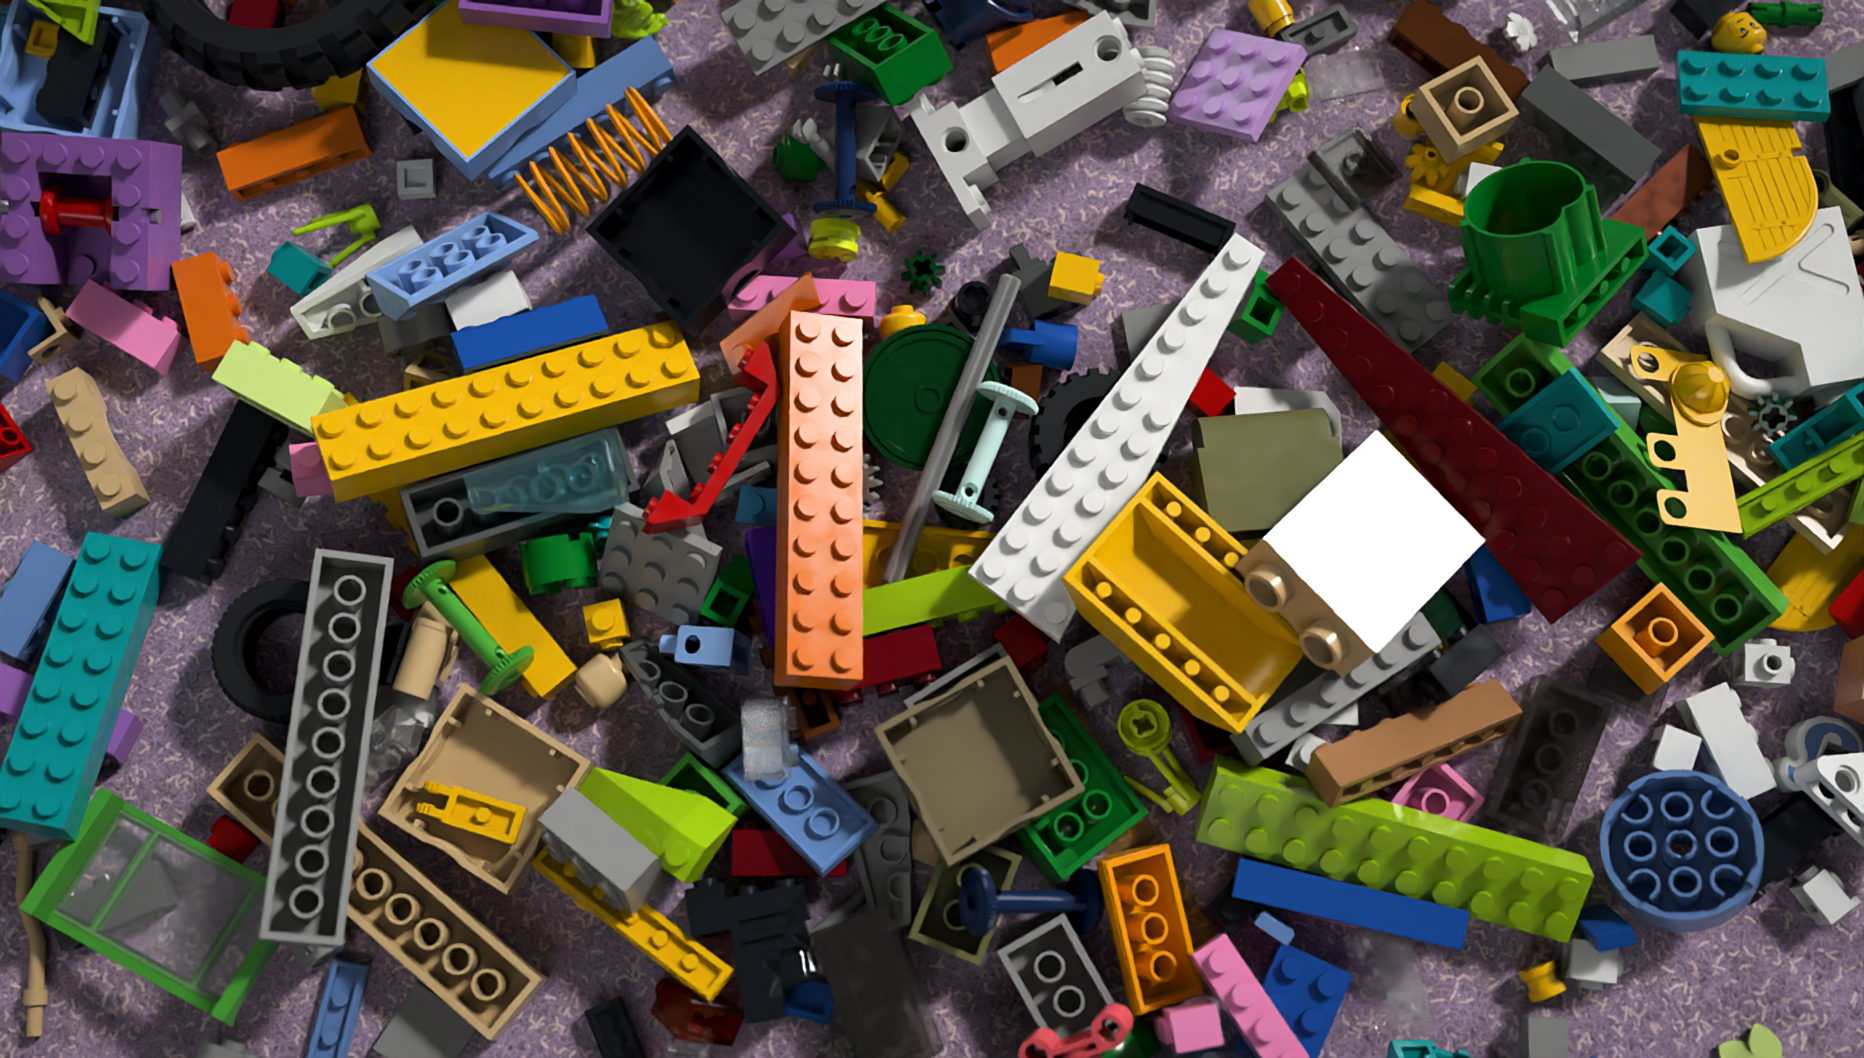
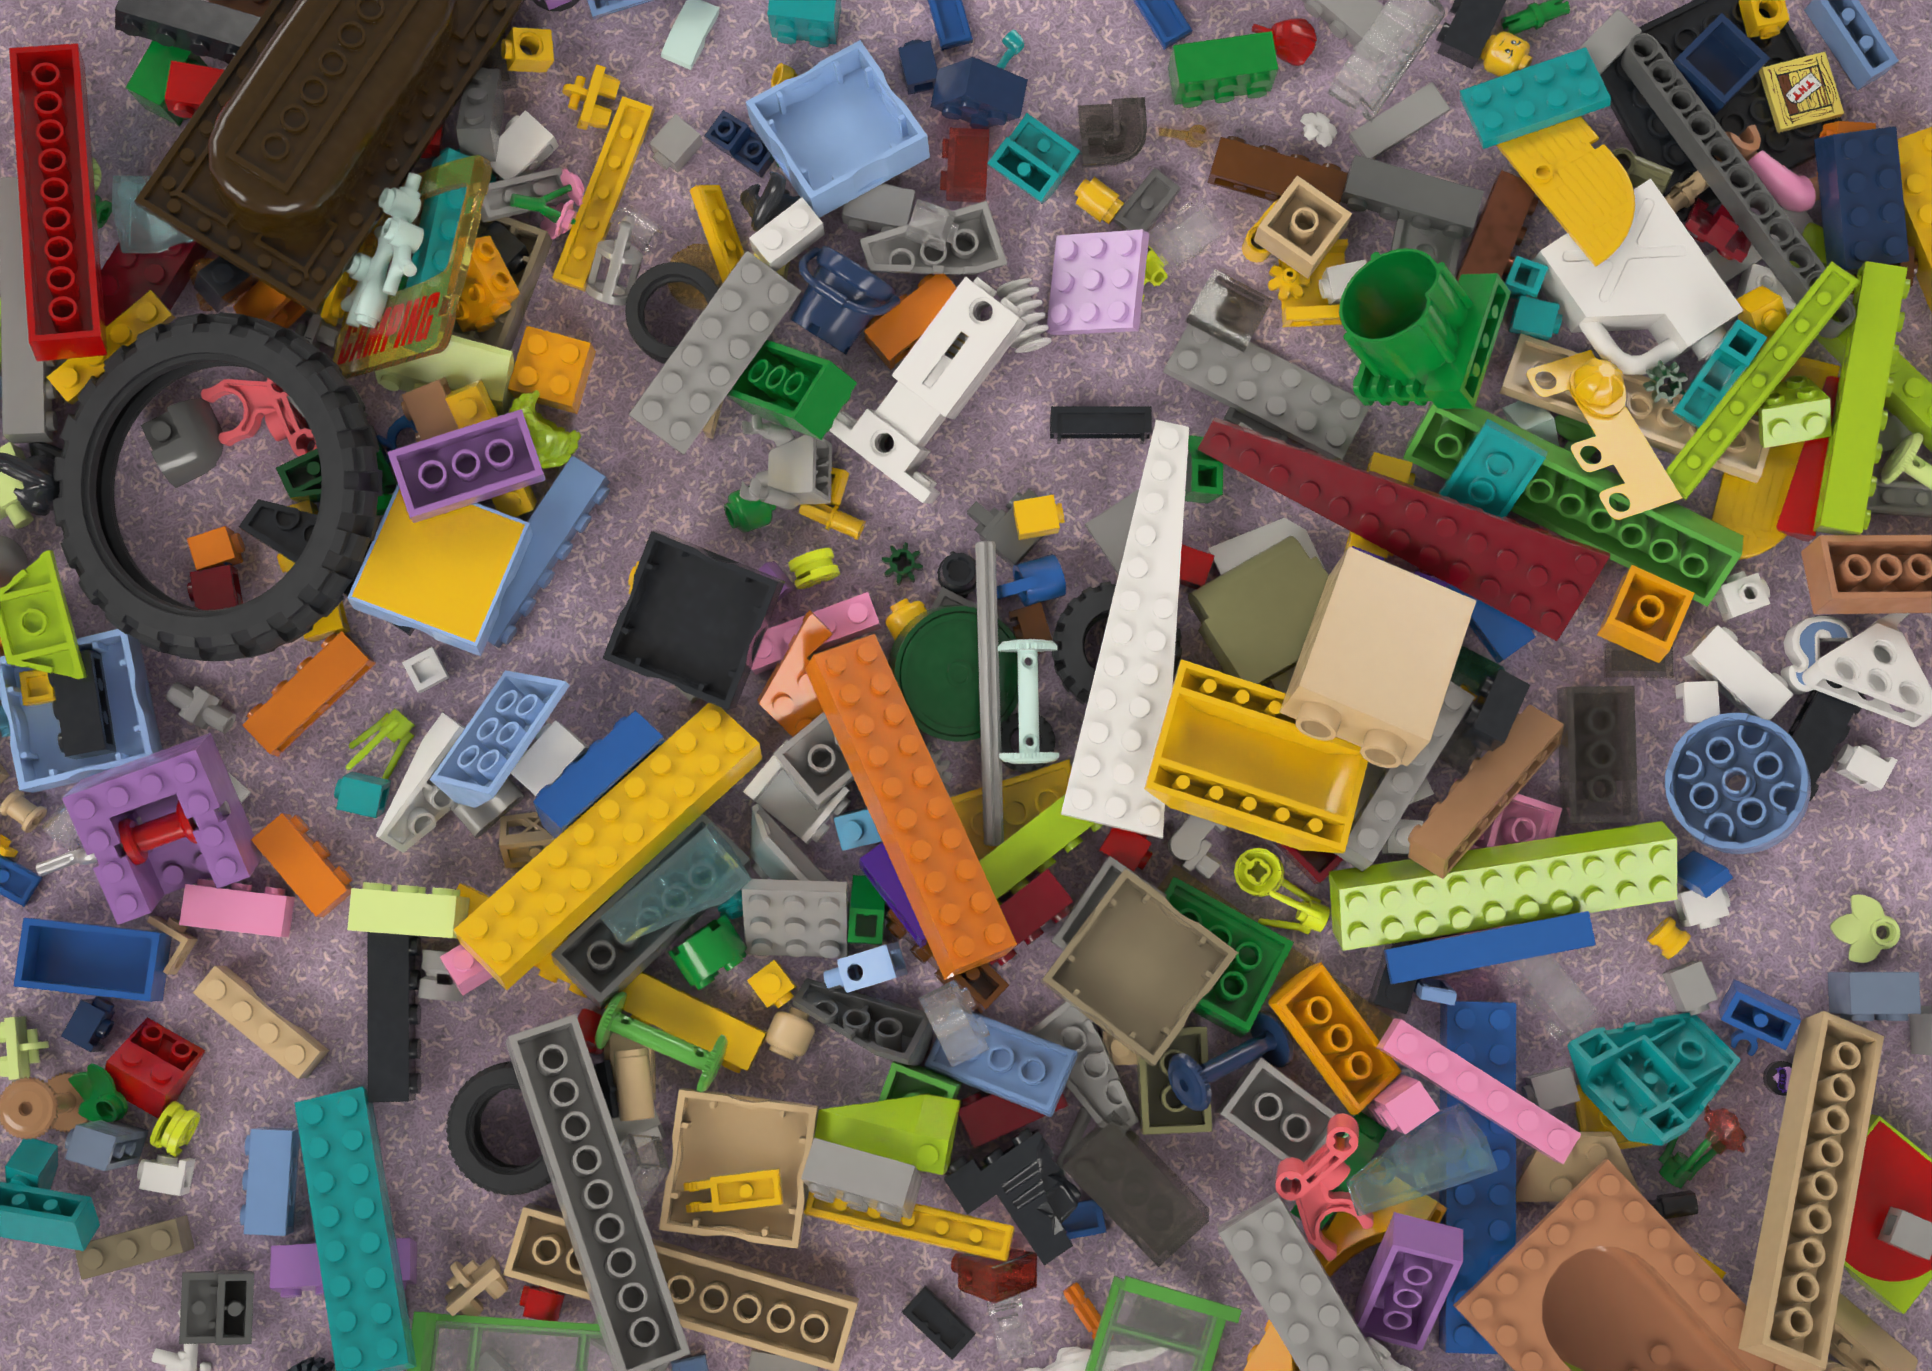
camera: 25 degrees left, 5 degrees up
(160, 800) = (470, 1282): none -> tan hips
(651, 124) = (564, 652): light orange piece -> none
(675, 513) = (809, 720): red slope -> none
(845, 96) = (793, 490): dark blue hose -> none

